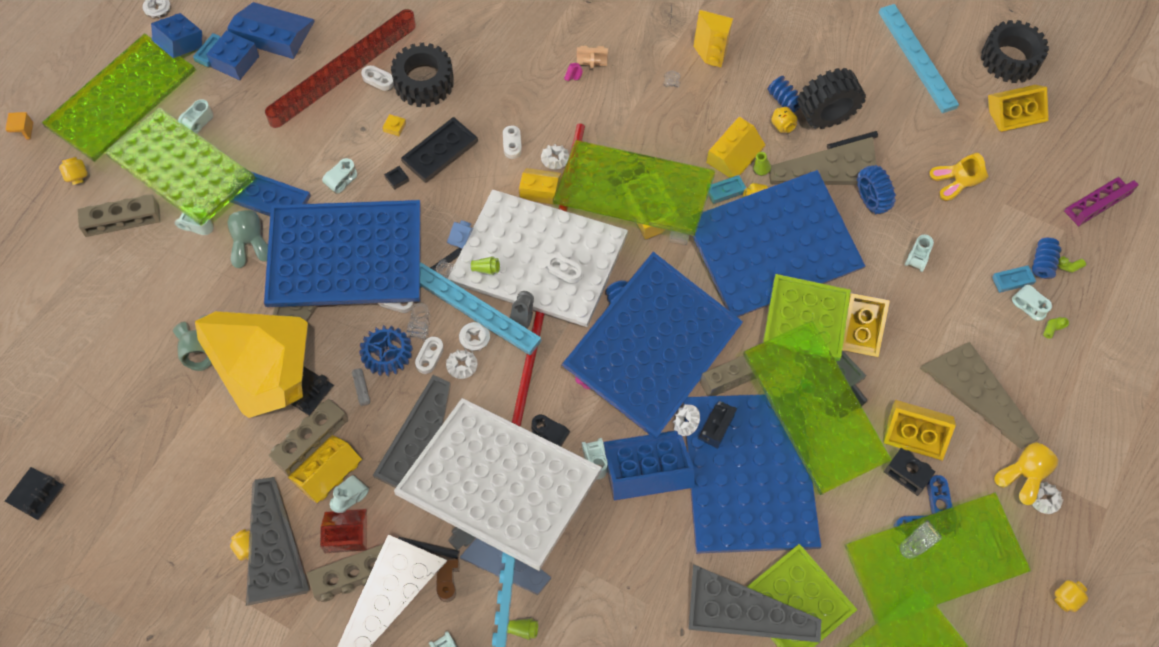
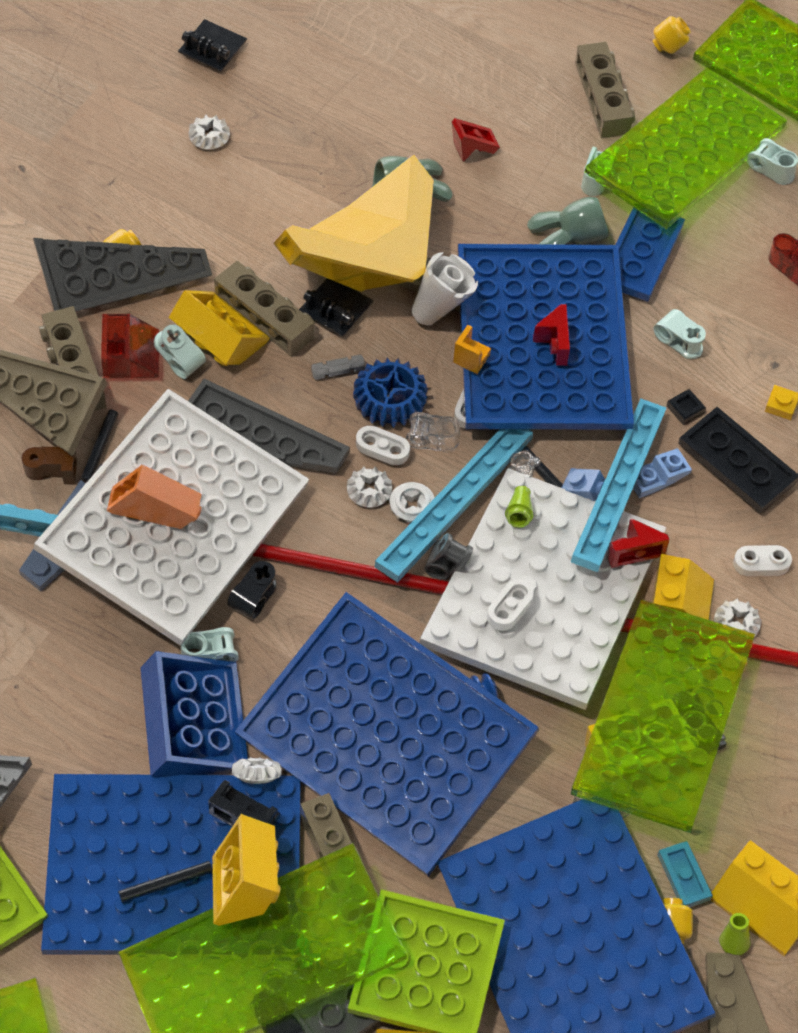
camera: 90 degrees right, 5 degrees down
(131, 497) = (215, 138): none -> white gear
(159, 300) = (472, 137): none -> red slope
(310, 306) = (443, 287): none -> white cone
(351, 236) = (554, 330): none -> red slope
(364, 291) = (469, 352): none -> light orange panel
(449, 194) = (662, 472): none -> light blue slope
(469, 211) = (618, 486): none -> medium azure plate
(499, 488) = (154, 499): none -> orange slope
(512, 197) = (640, 545): none -> red slope
(770, 414) = (245, 872): none -> yellow slope
(770, 470) = (165, 881): none -> black bar

